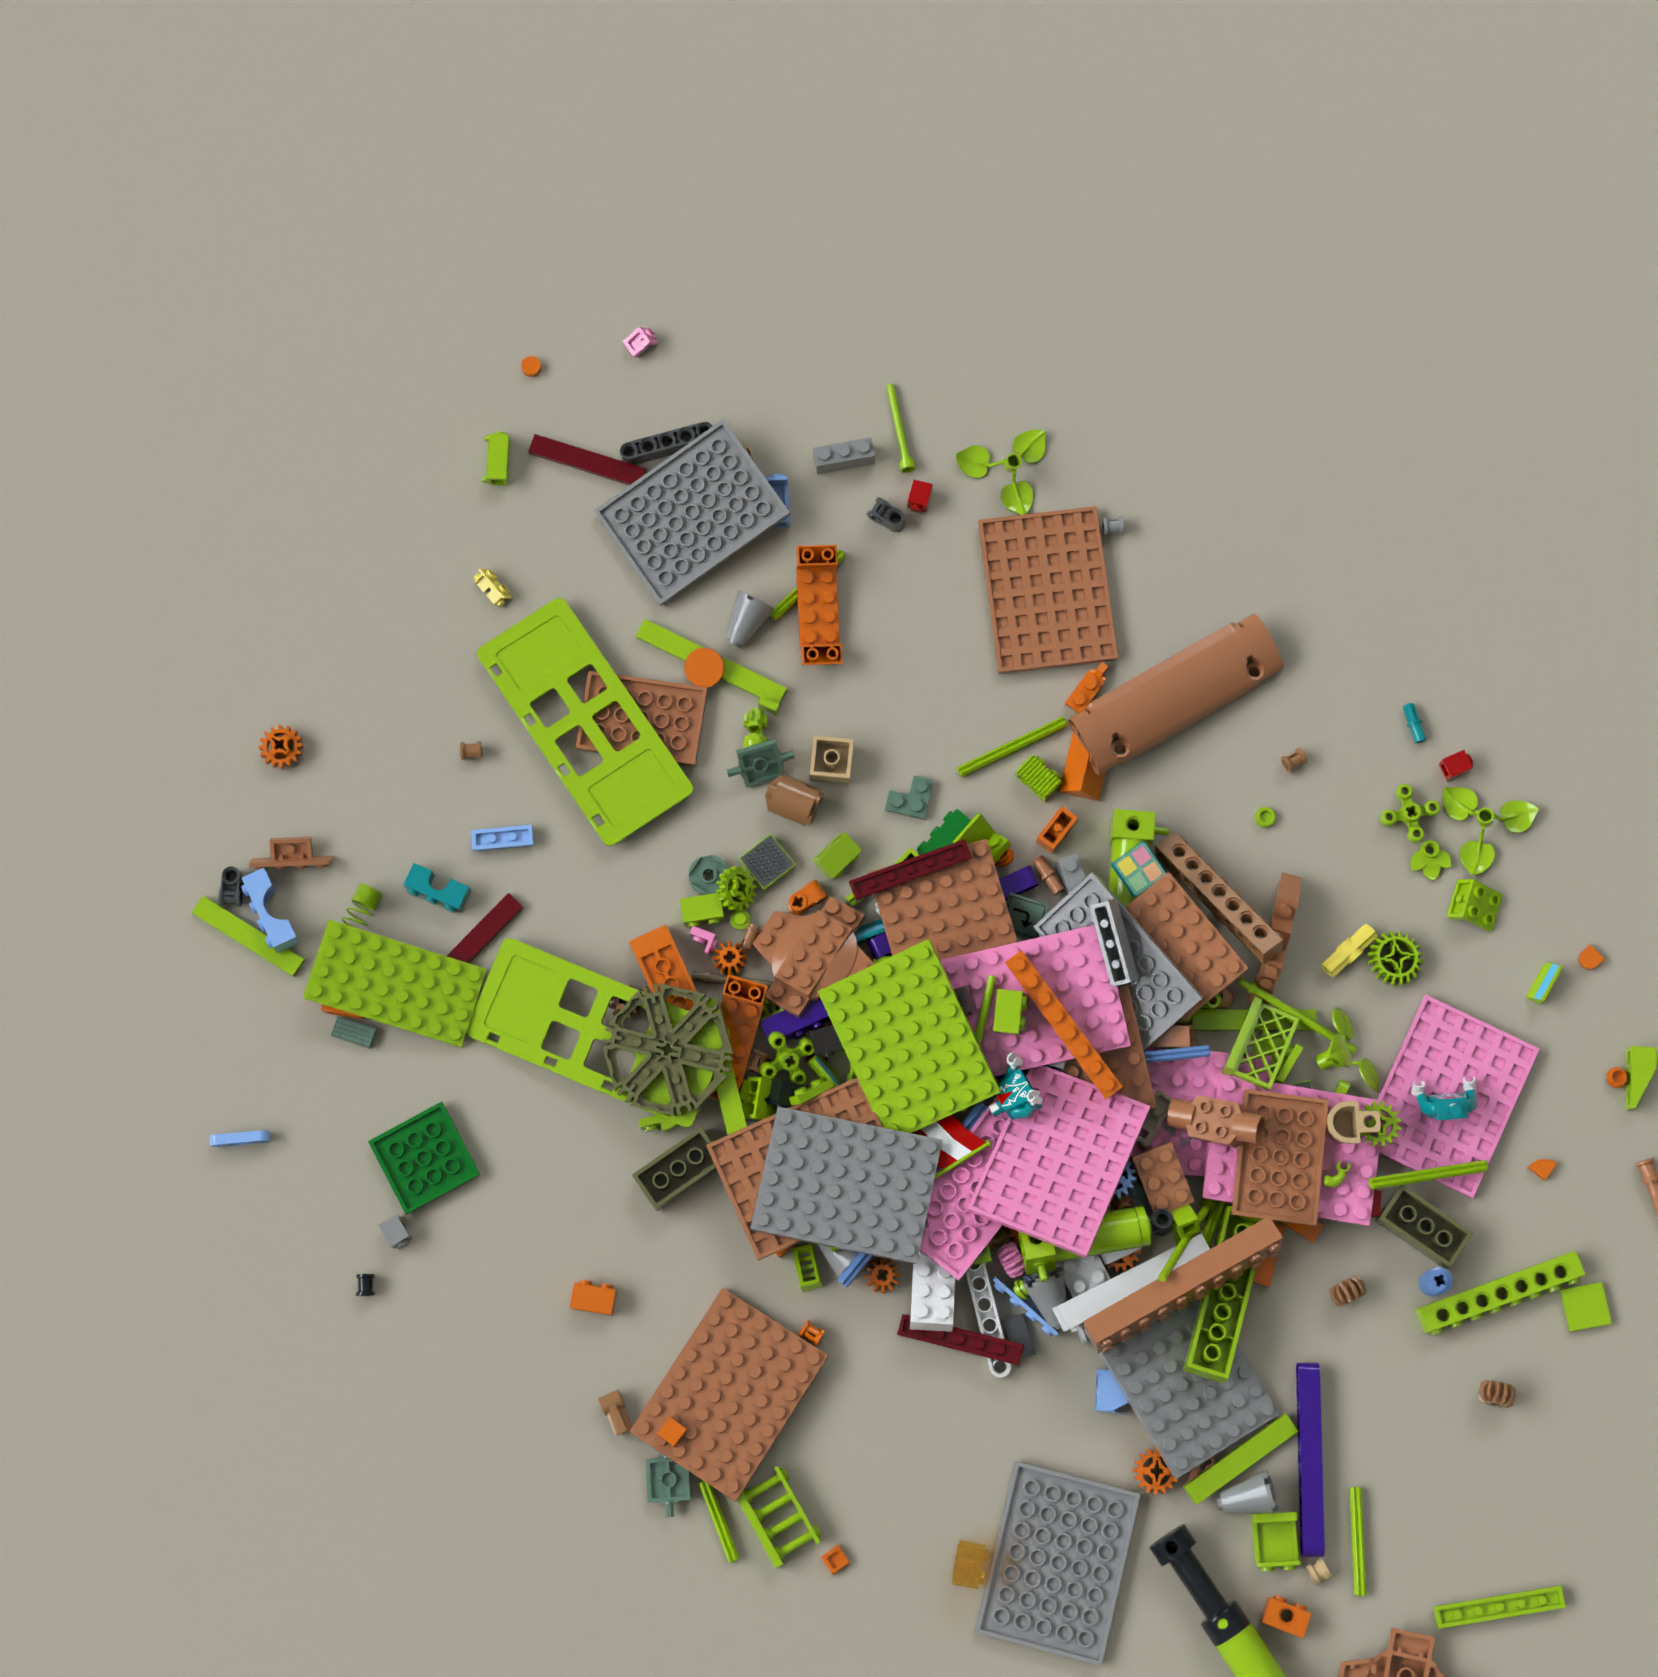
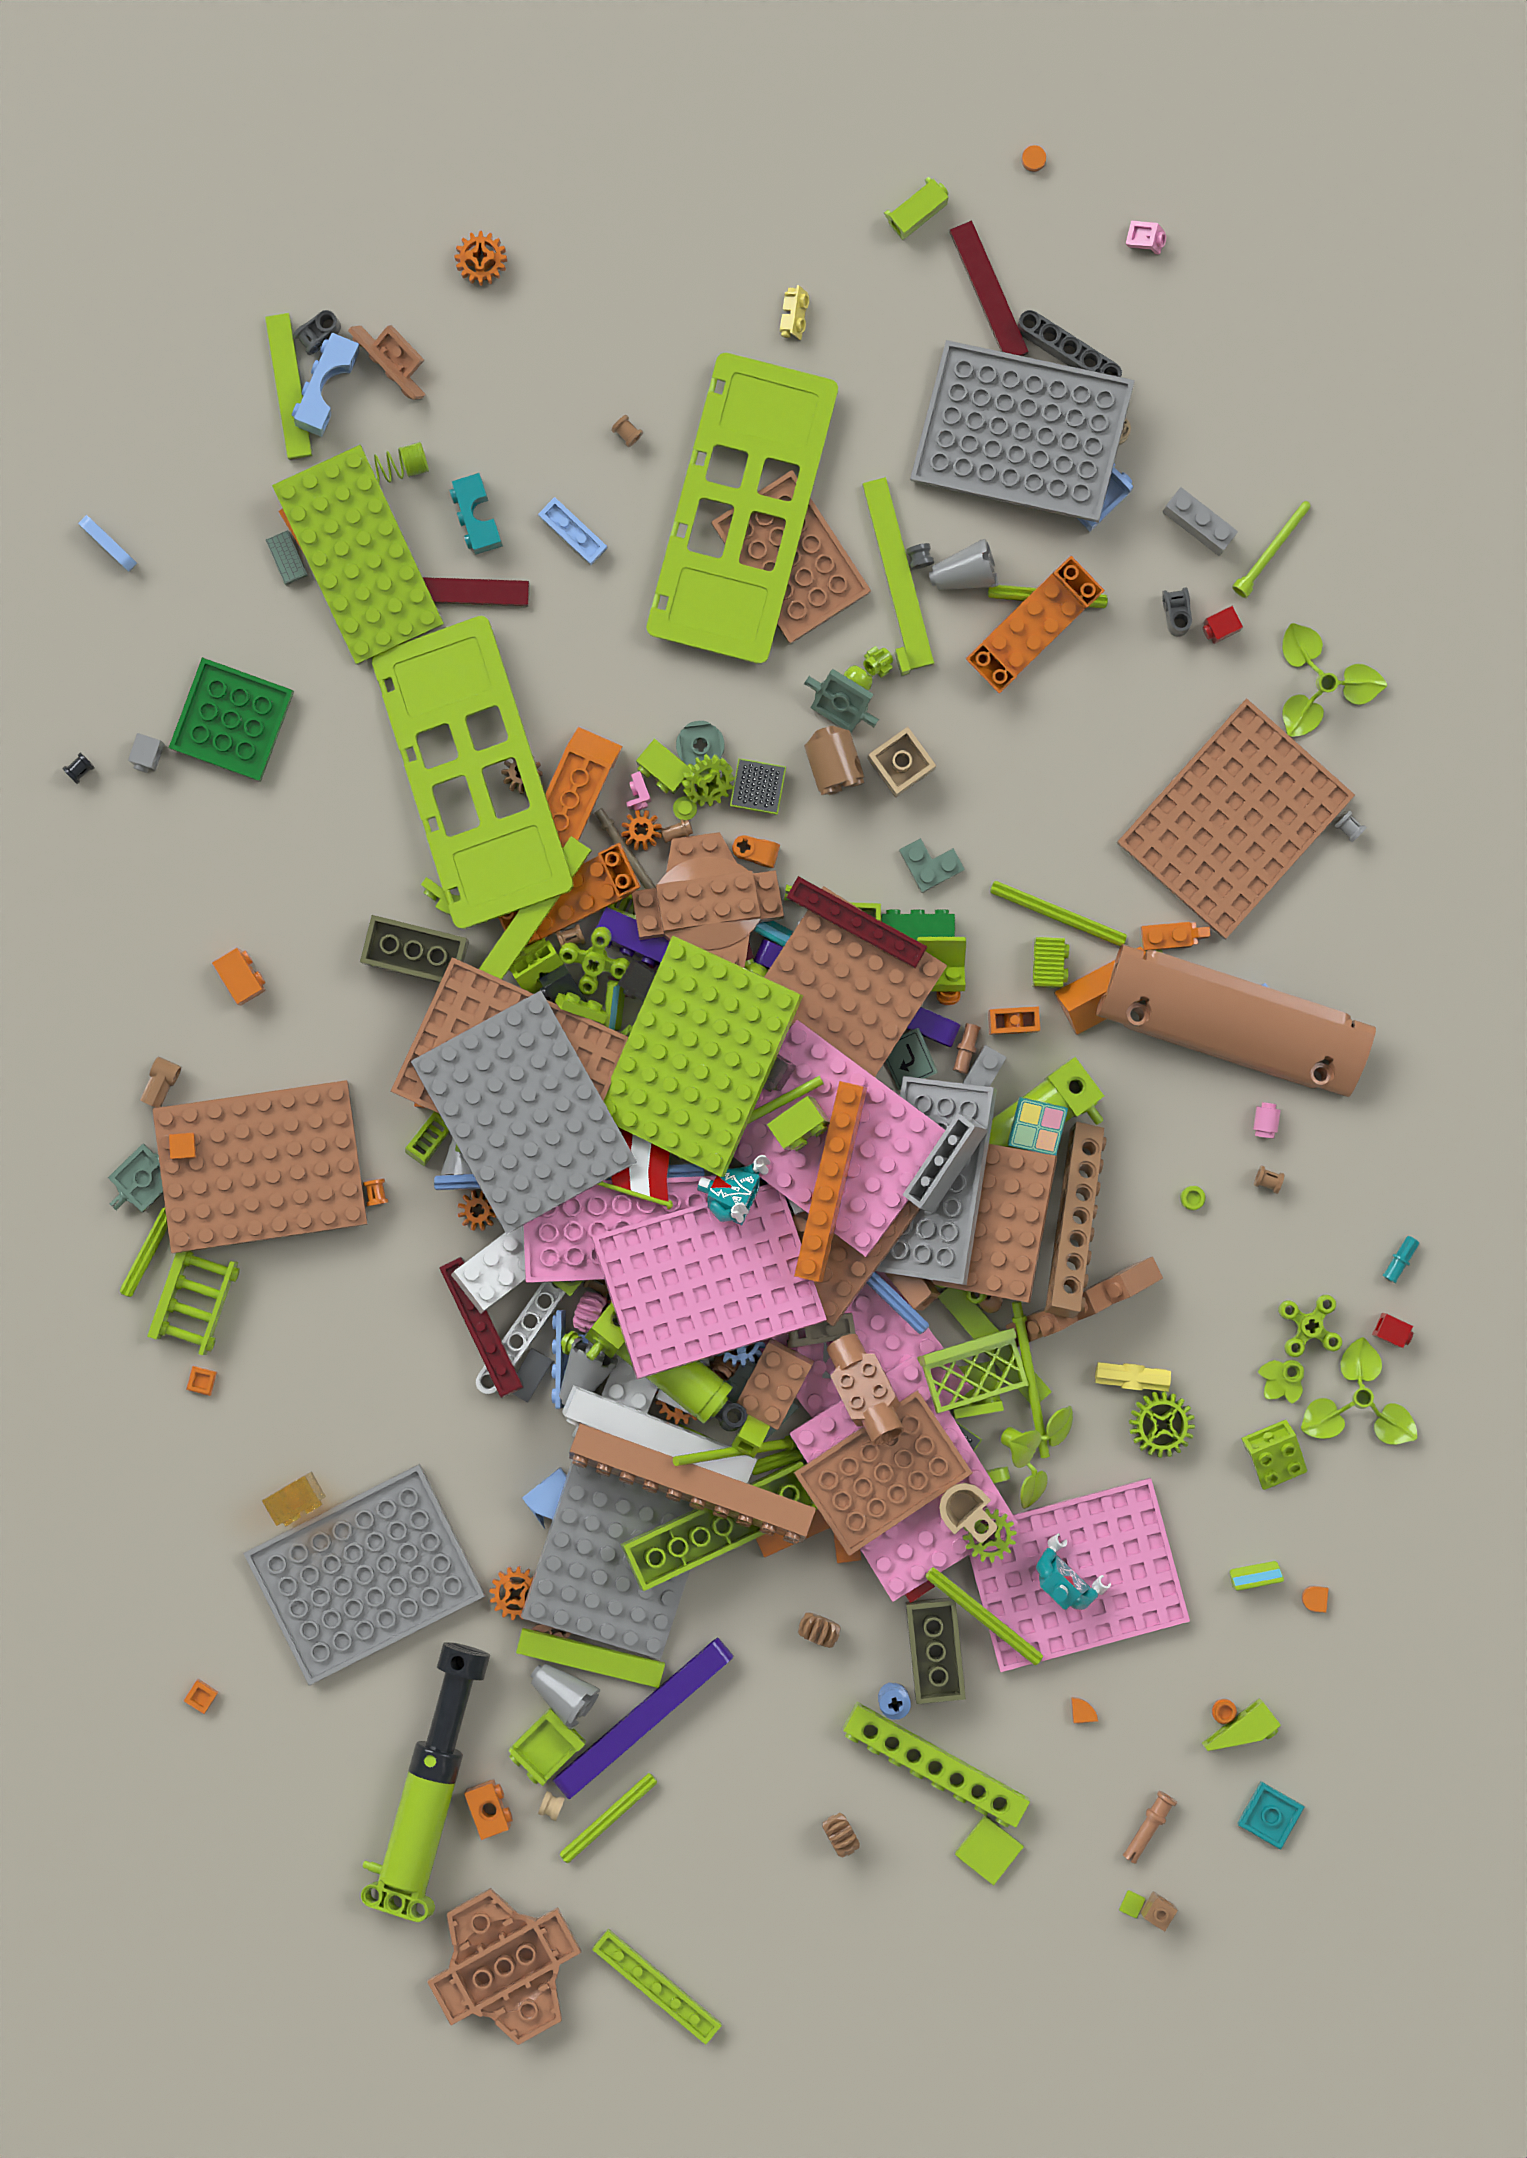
camera: 45 degrees right, 10 degrees up
(663, 1030) = (484, 848): olive plate -> none
(704, 667) = (887, 571): orange tile -> none
(712, 639) = (920, 556): none -> dark grey wheel
(837, 855) = (817, 844): lime brick -> none
(1255, 730) = (1266, 1120): none -> bright pink brick
(1336, 1180) = (908, 1540): lime arm -> none

